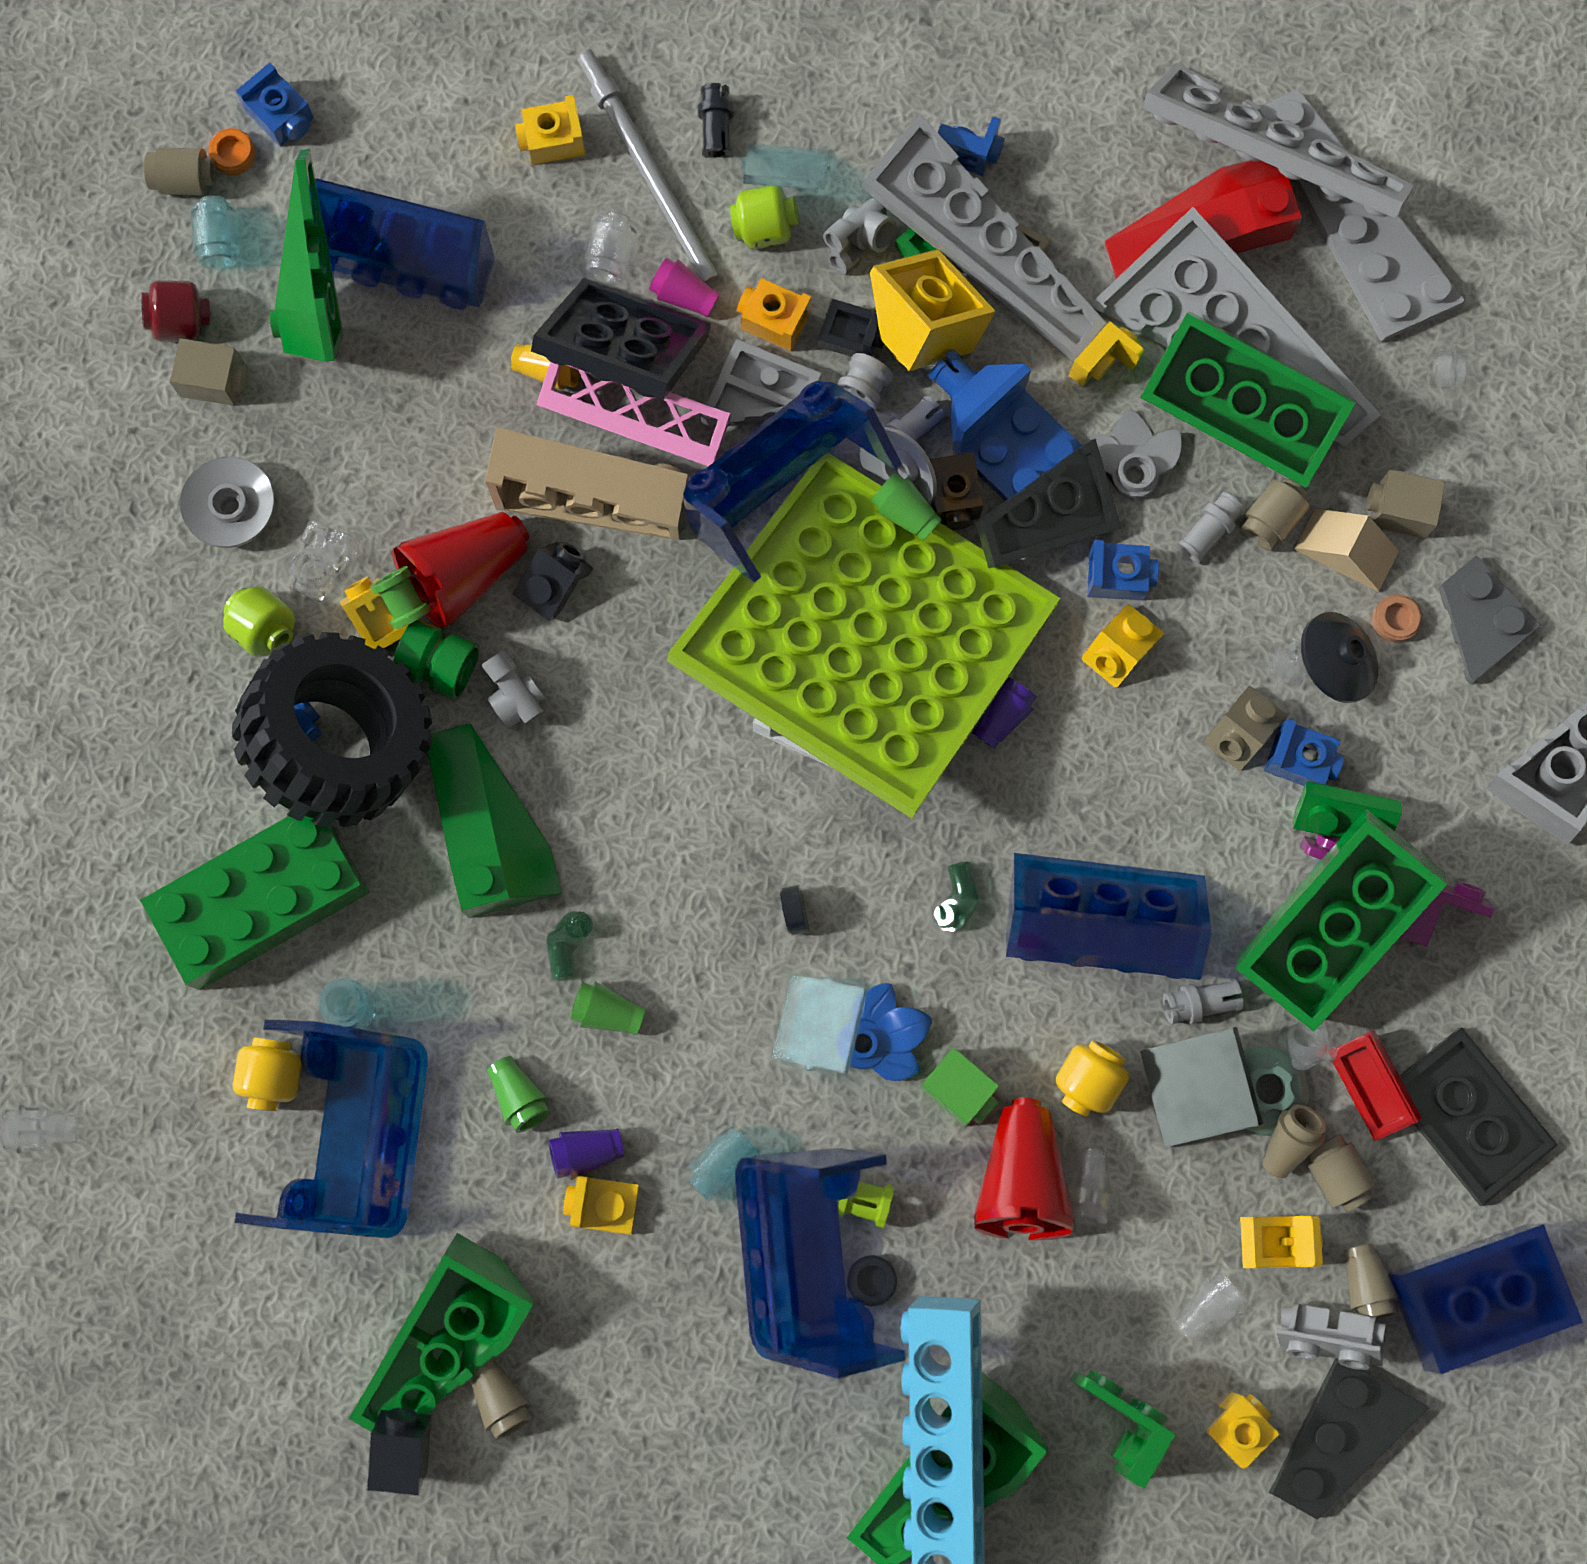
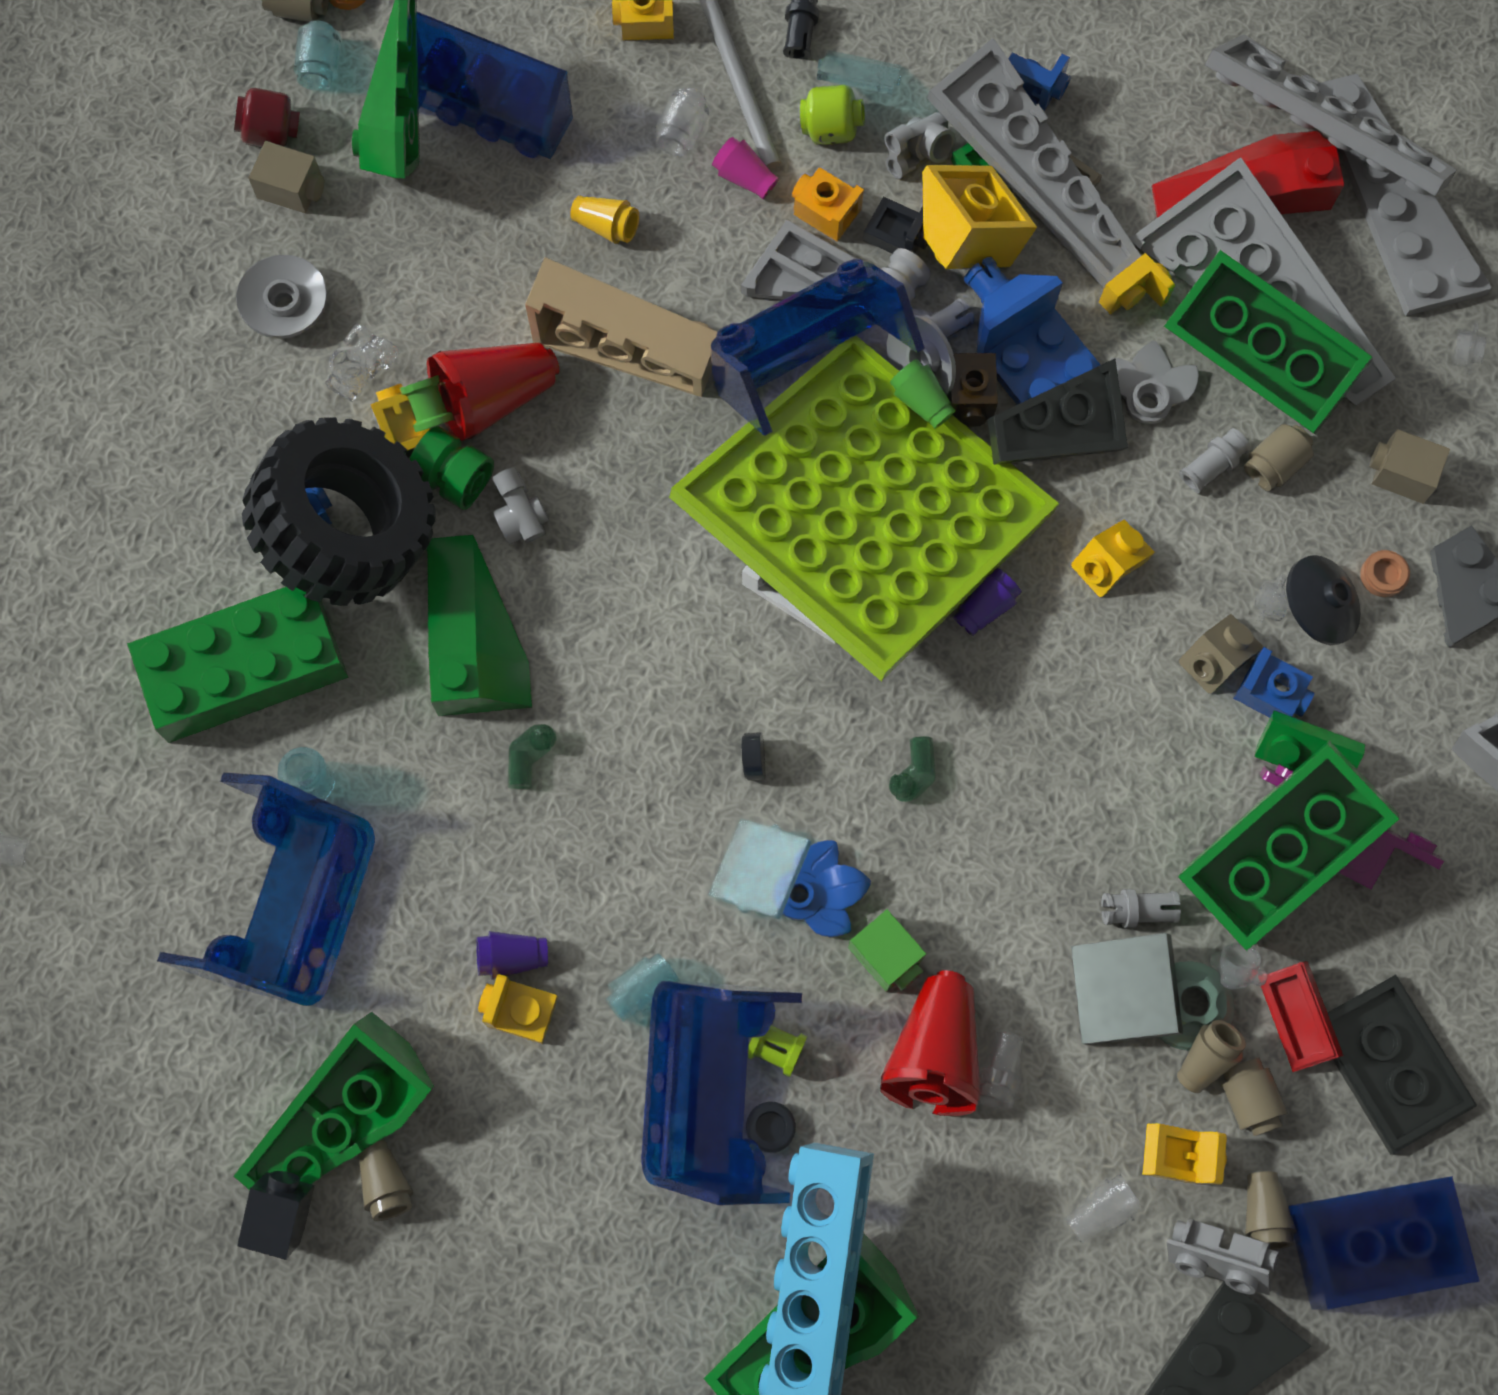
camera: 10 degrees right, 5 degrees down
(258, 620) = (287, 402): lime head -> none
(267, 1073) = (217, 829): yellow head -> none
(519, 1098) = (455, 892): bright green cone -> none
(552, 578) = (574, 412): black bracket -> none
(605, 1010) = (554, 822): bright green cone -> none
(621, 338) = (677, 200): black plate -> none
(637, 429) = (667, 282): bright pink fence -> none
(1092, 1078) = (1019, 963): yellow head -> none
(1108, 916) = (1059, 811): clear blue slope -> none
(1109, 582) = (1111, 497): blue brick -> none
(1135, 1452) = (1007, 1336): green bracket -> none
(1242, 1428) = (1118, 1333): yellow bracket -> none
(1349, 546) = (1347, 497): tan slope -> none

